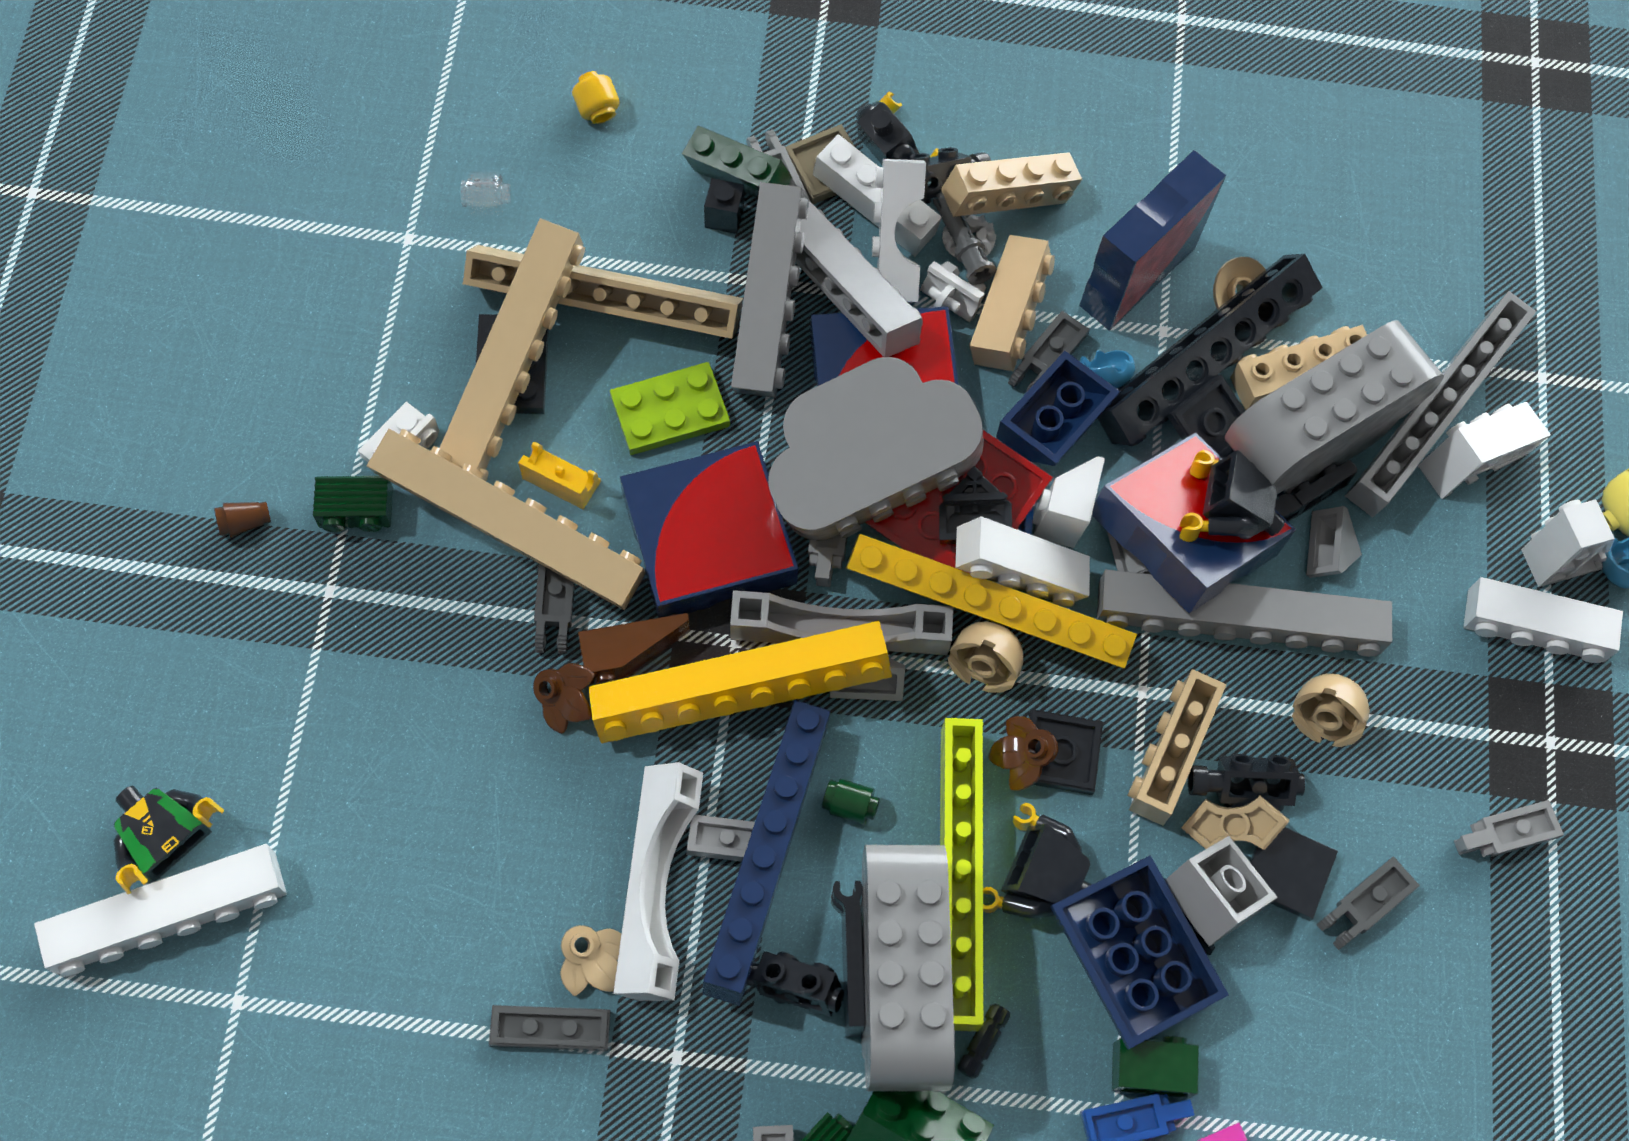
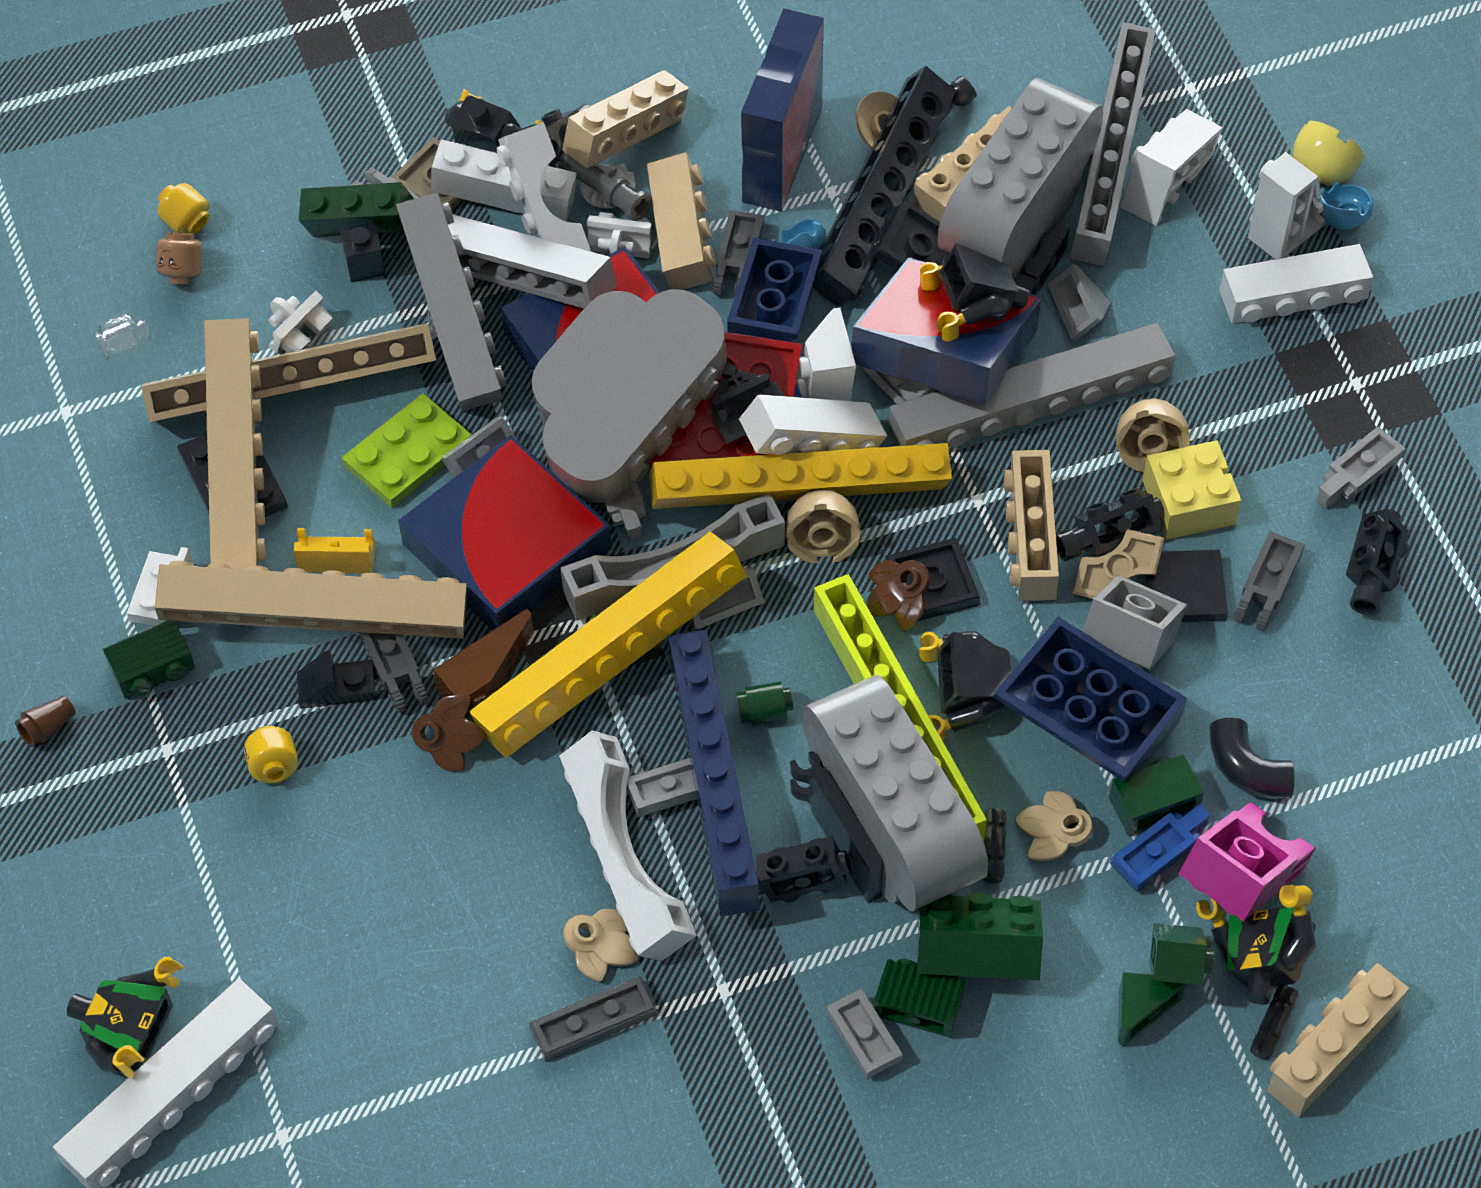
camera: 20 degrees left, 10 degrees down
(406, 642) = (270, 752): none -> yellow head
(492, 597) = (332, 684): none -> black slope
(568, 141) = (179, 257): none -> medium nougat head
(623, 254) = (308, 313): none -> white hips
(729, 436) = (476, 446): none -> light grey plate
(1043, 1046) = (1049, 826): none -> tan plate
(1250, 1081) = (1244, 767): none -> black cylinder
(1330, 290) = (964, 91): none -> black hinge
(1342, 780) = (1192, 489): none -> light yellow piece
(1479, 932) = (1376, 559): none -> black brick

